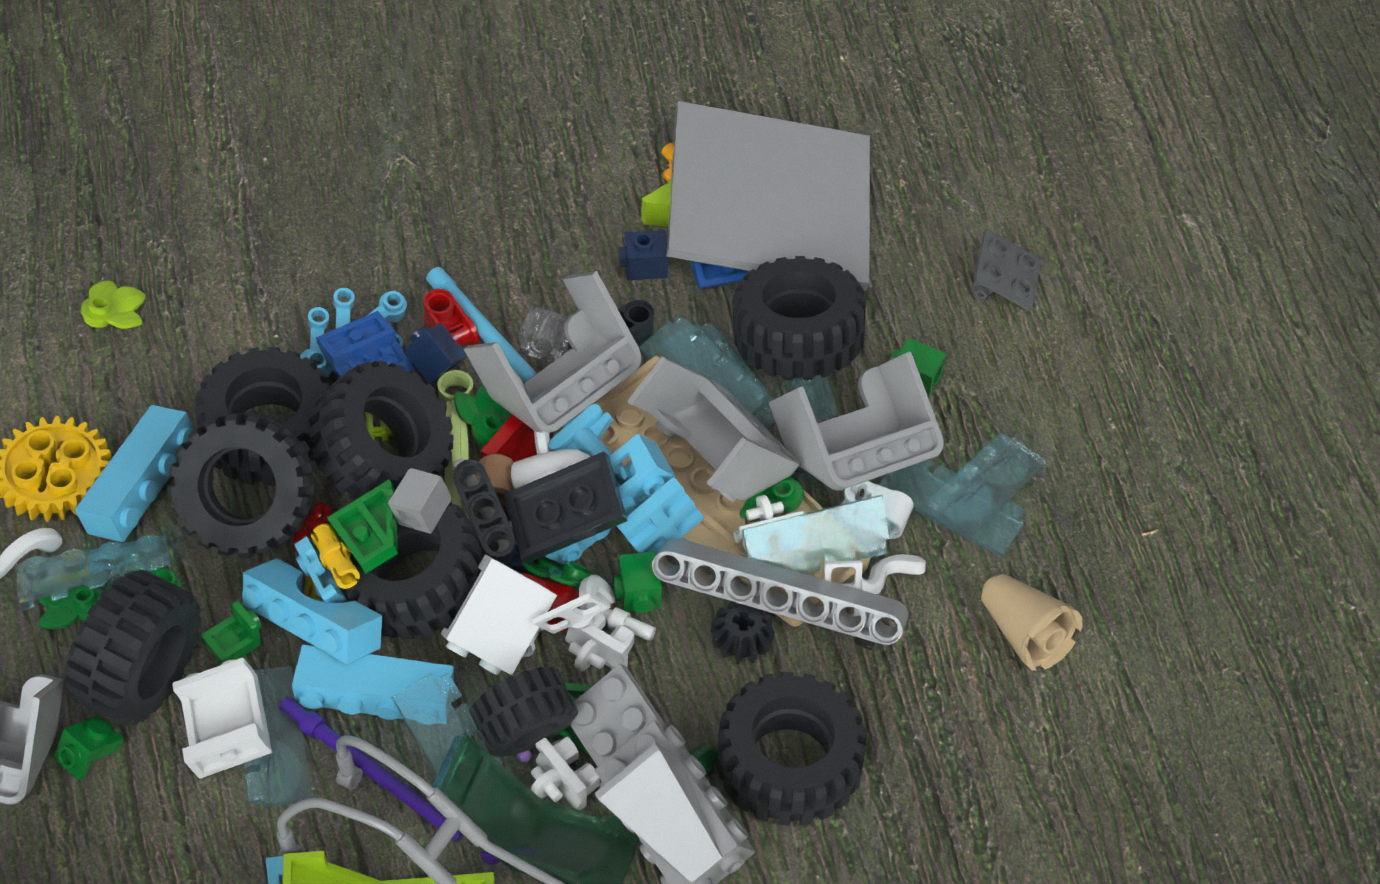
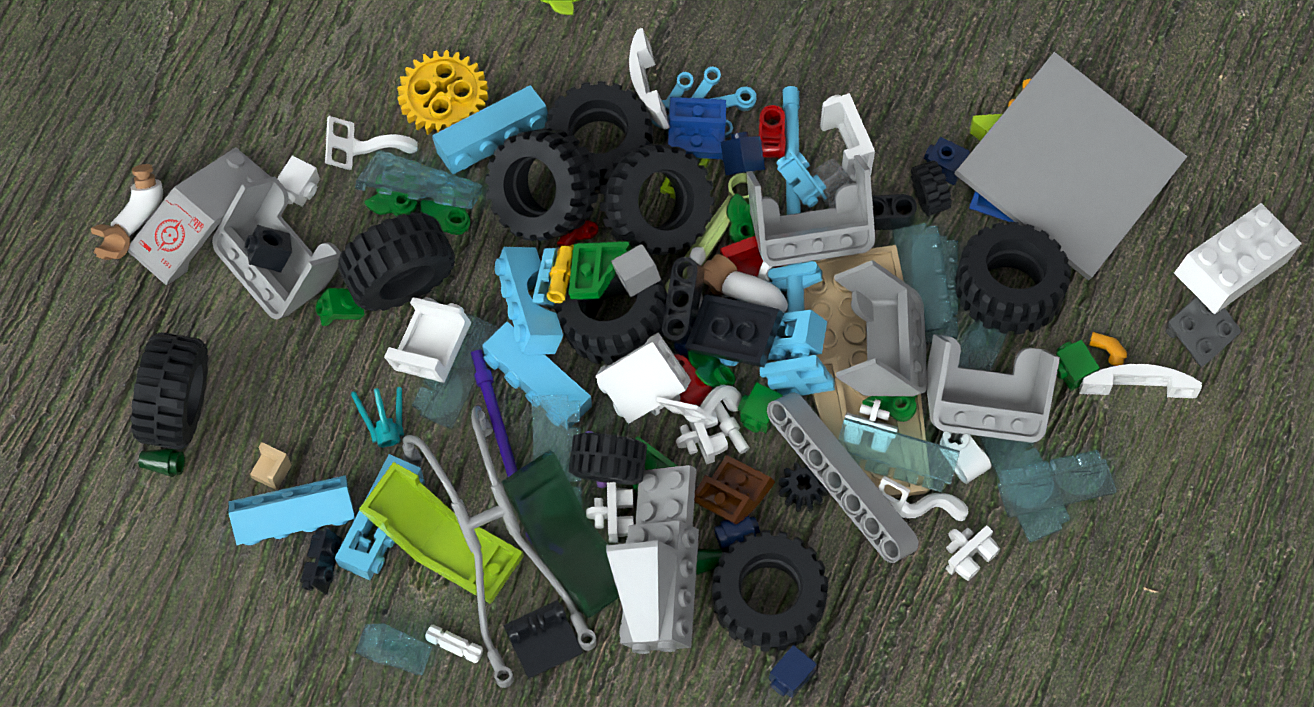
camera: 40 degrees right, 15 degrees up
(234, 635) = (475, 285): green bracket -> none
(240, 841) = (386, 431): none -> teal plant
(258, 326) = (639, 59): none -> white slope
(530, 272) = (842, 114): none -> white panel
(530, 340) = (794, 169): none -> medium azure hinge
(652, 281) = (931, 188): none -> black tyre
(676, 672) = (733, 490): none -> reddish brown slope
(704, 715) = (729, 532): none -> dark blue brick
(875, 816) = (792, 672): none -> dark blue brick
(934, 334) = (1112, 345): none -> light orange arm
(963, 580) = (962, 561): none -> white hips
(993, 189) = (1237, 258): none -> white brick
(1021, 331) = (1178, 383): none -> white slope
(1031, 620) = (1003, 603): tan cone -> none

